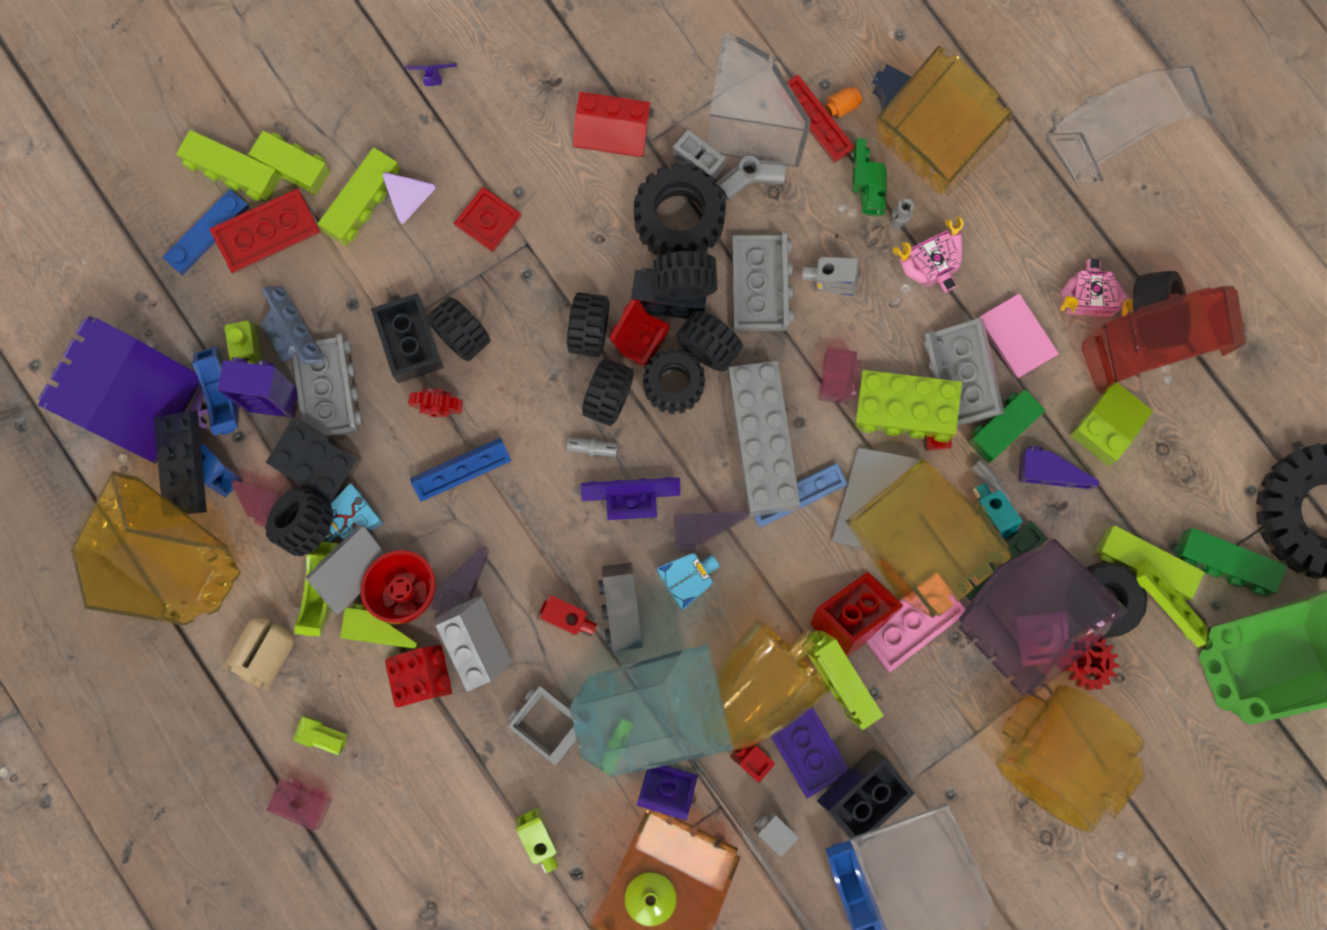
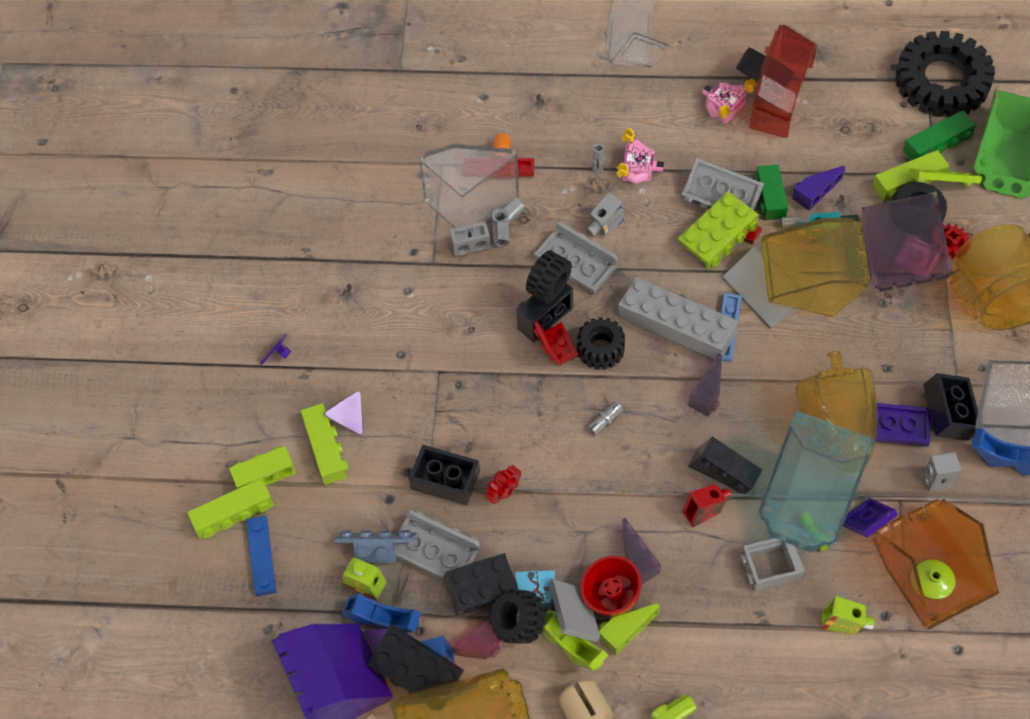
camera: 45 degrees left, 20 degrees down
(258, 388) = (408, 575): dark purple brick -> none
(264, 230) = (294, 516): red tile -> none
(418, 675) = (677, 623): red bracket -> none
(458, 328) = (466, 436): black tyre -> none
(460, 469) = (557, 503): blue plate -> none
(473, 642) = (682, 569): light grey slope -> none
(487, 219) = (403, 382): red tile -> none
(587, 324) = (526, 362): black tyre -> none
(607, 392) = (579, 380): black tyre -> none
(611, 124) = (405, 272): red slope -> none
(630, 497) = (656, 416): dark purple bracket -> none
(684, 183) = (491, 251): black tyre -> none
(687, 578) = (735, 419): medium azure torso -> none
(709, 340) = (593, 301): black tyre -> none
(753, 761) = (883, 458): red bracket -> none
(838, 376) = (669, 256): clear pink brick -> none
(842, 680) = (887, 369): lime door -> none
(856, 613) = (826, 336): red slope -> none
(869, 180) = (560, 164): green plate -> none
(888, 84) = (515, 120): dark blue arch -> none
(910, 632) = (858, 324): bright pink tile -> none
(944, 121) = (565, 94): clear yellow windscreen -> none
(1018, 336) = (722, 152): bright pink tile -> none
(1111, 424) = (812, 143): lime slope -> none

